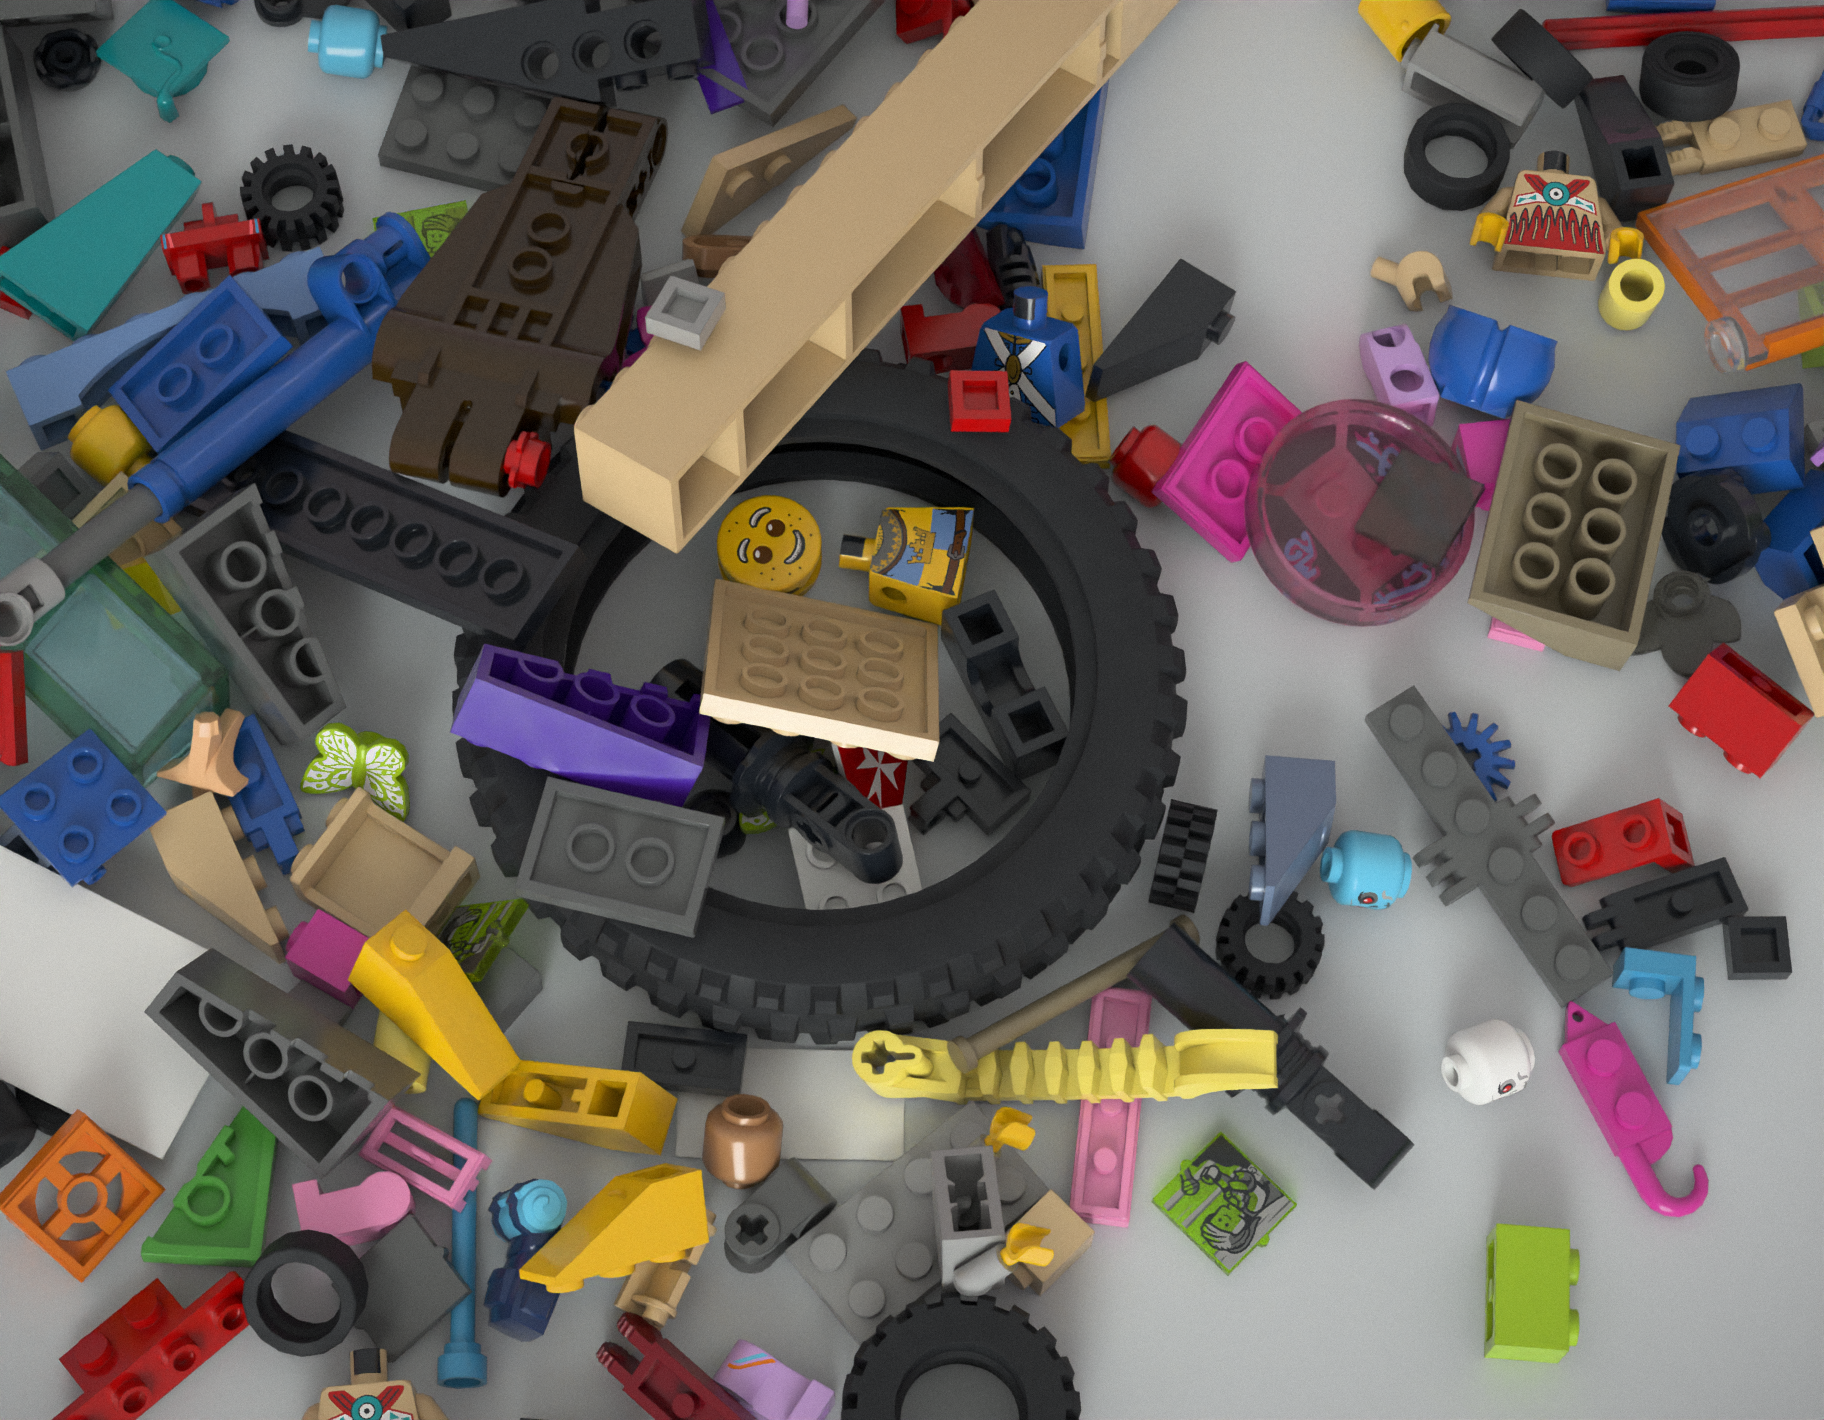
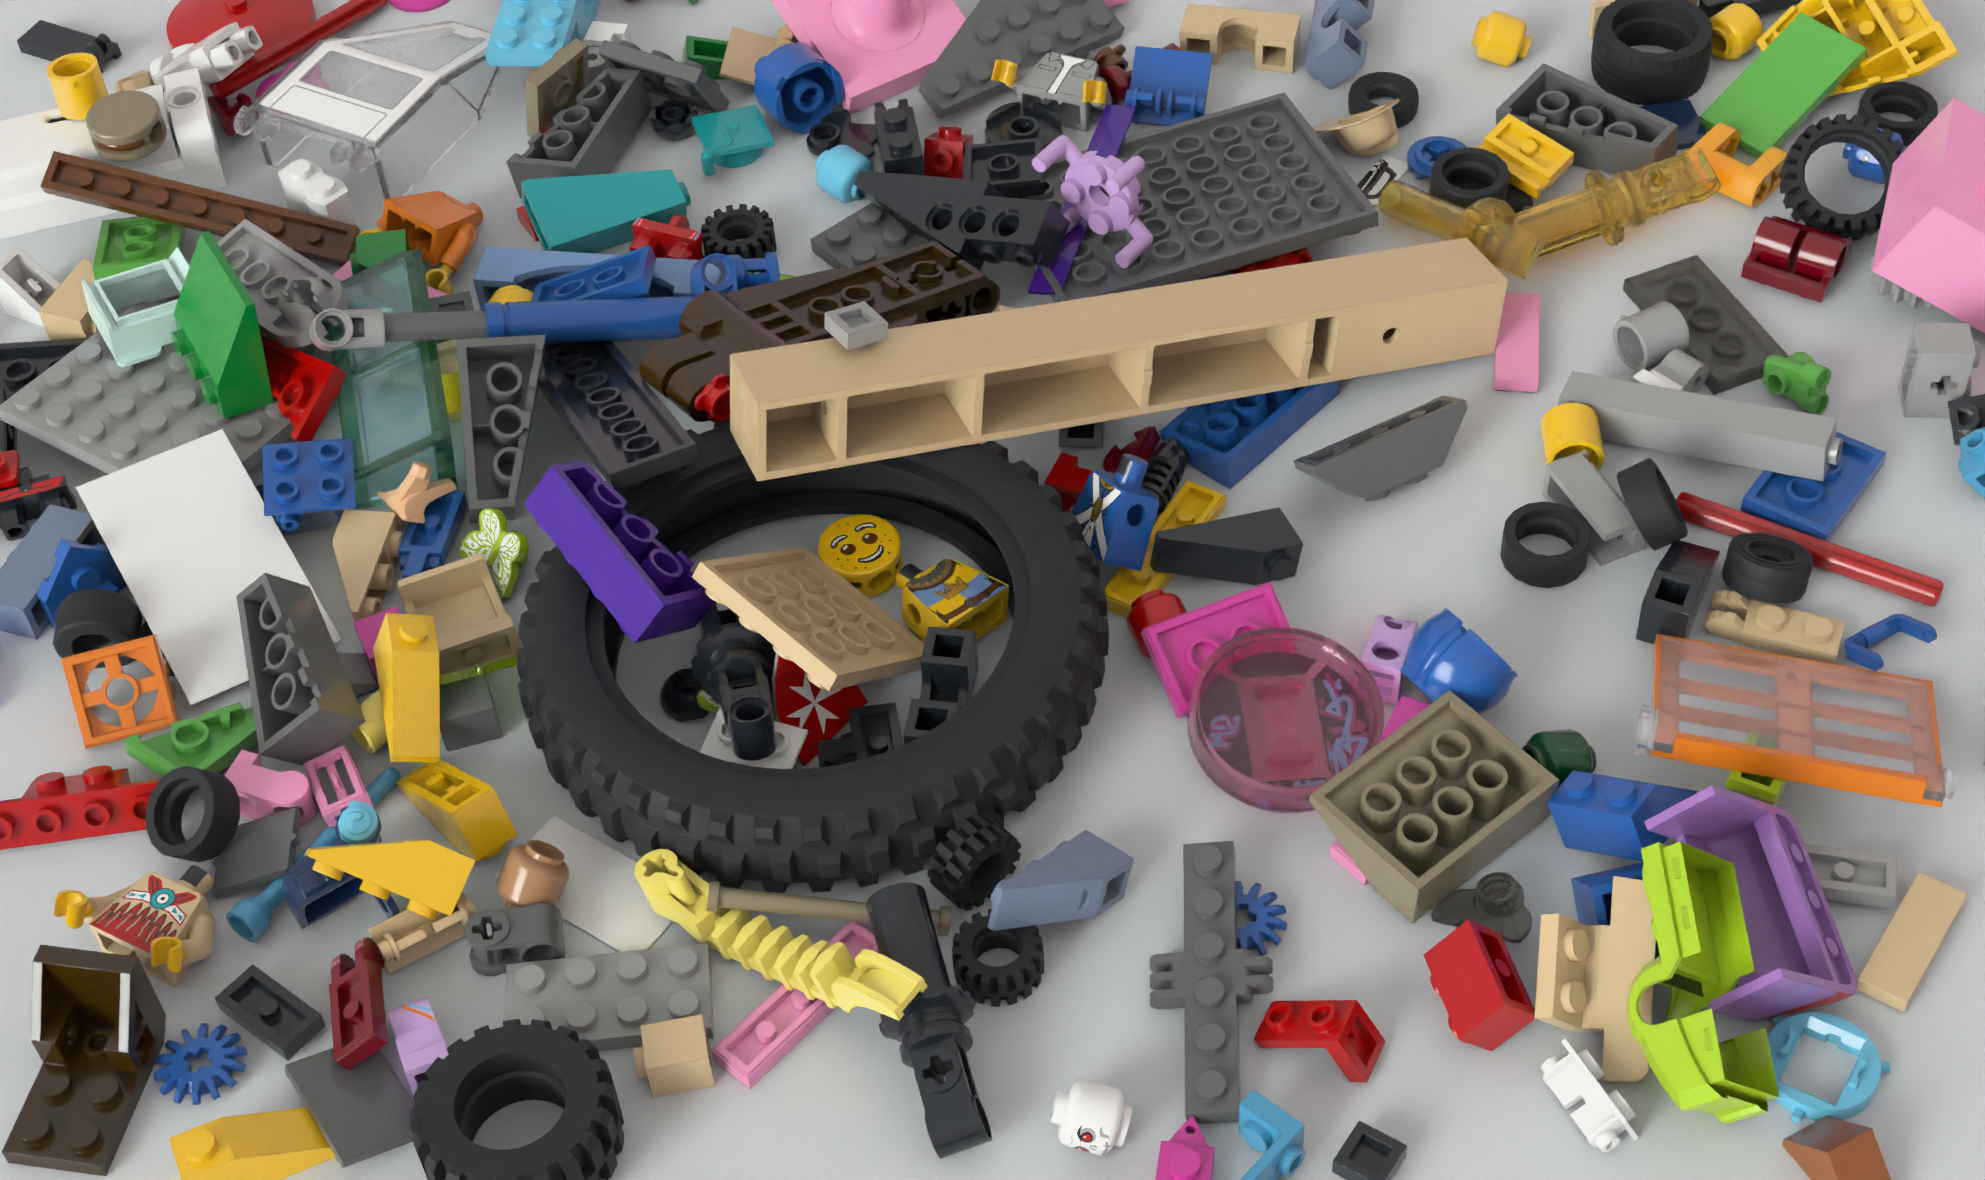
camera: 40 degrees right, 20 degrees down
(620, 857) = (574, 637): dark grey plate -> none
(686, 1058) = (546, 814): black plate -> none
(970, 1211) = (621, 985): light grey torso -> none
(979, 401) = (1037, 494): red plate -> none
(1224, 1203) = (829, 1110): piece -> none
(1228, 120) = (1389, 452): none -> dark grey wedge
(1366, 870) = (1105, 945): medium azure head -> none
(1413, 276) = (1458, 599): tan piece -> none
(1419, 508) = (1328, 734): clear smoke piece -> none
(1554, 224) = (1578, 611): torso -> none
(1631, 294) = (1606, 678): light yellow brick -> none
(1642, 406) = (1561, 752): none -> dark green head
(1668, 907) = (1319, 1092): black hinge -> none
(1737, 517) = (1554, 851): black plate -> none

